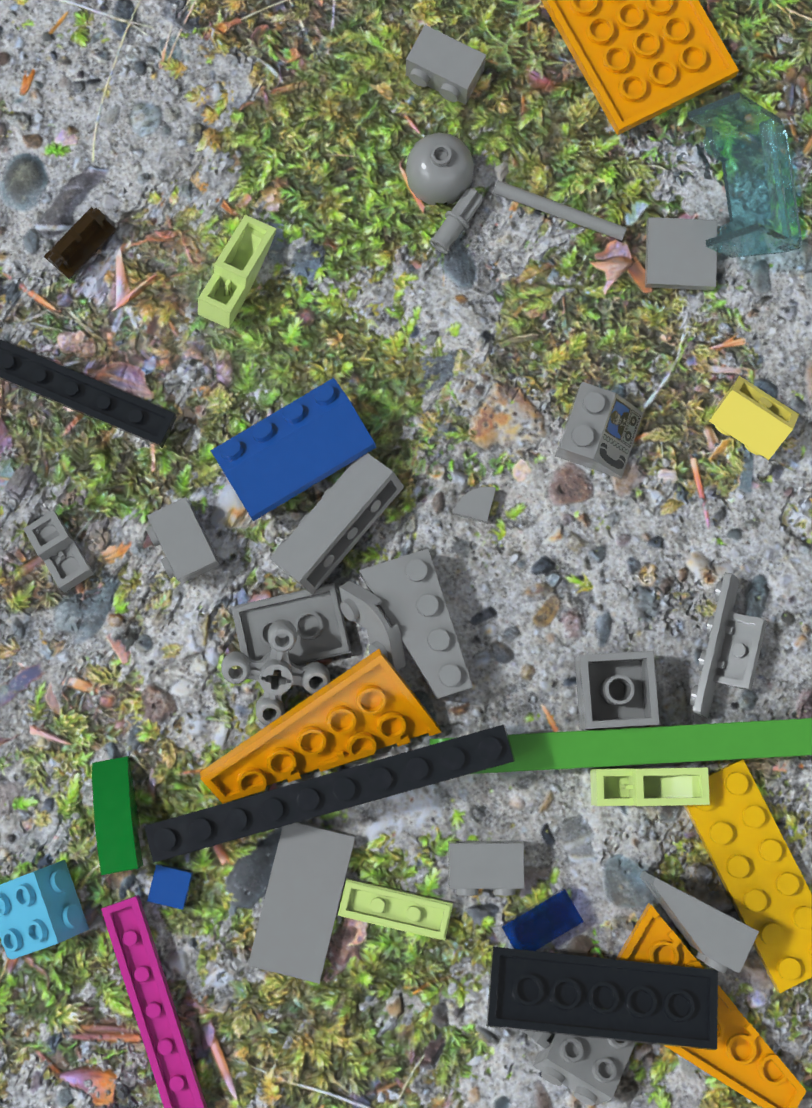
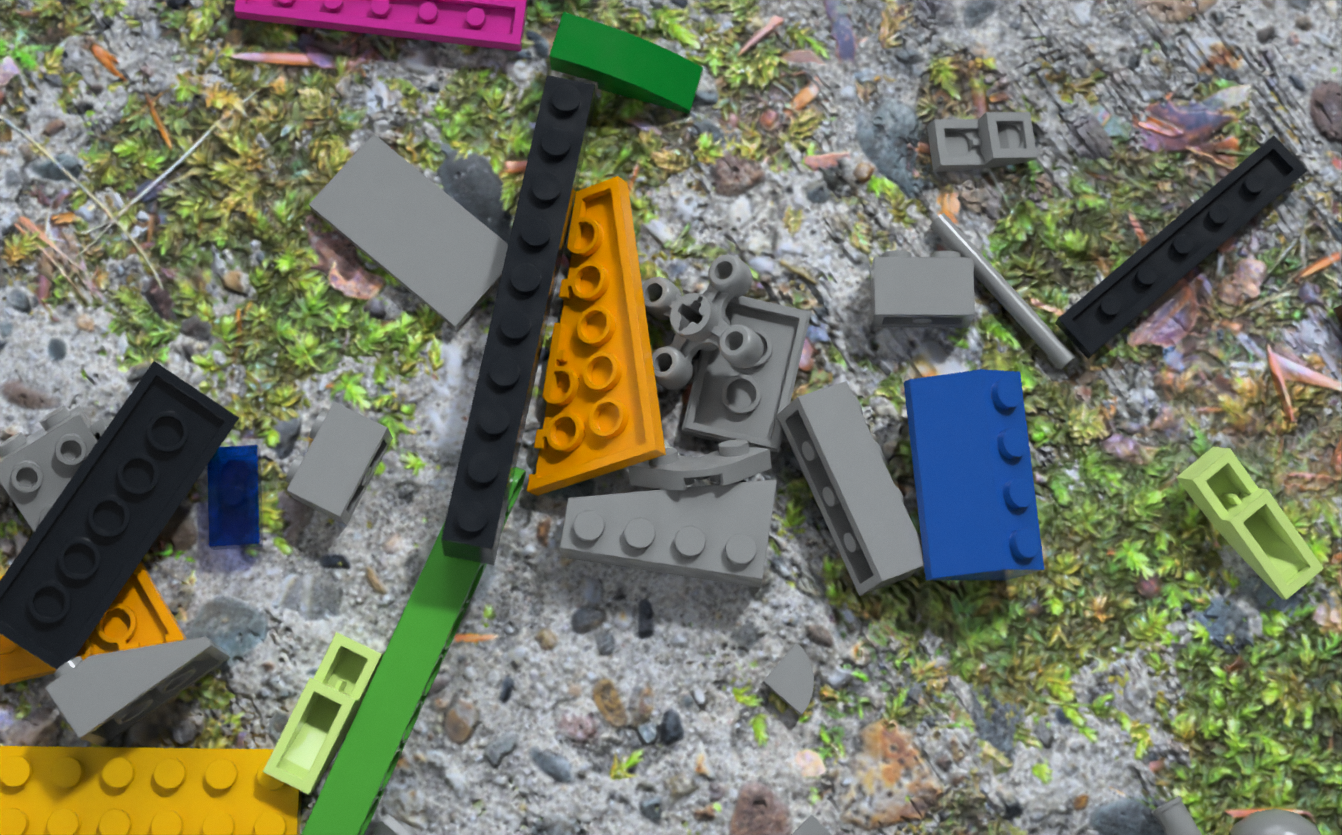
camera: 120 degrees right, 5 degrees down
(156, 491) = (1004, 292): none -> light grey bar
(170, 886) = (511, 90): blue tile -> none
(395, 909) = (346, 334): yellowish green tile -> none
(616, 689) = (464, 729): light grey brick -> none

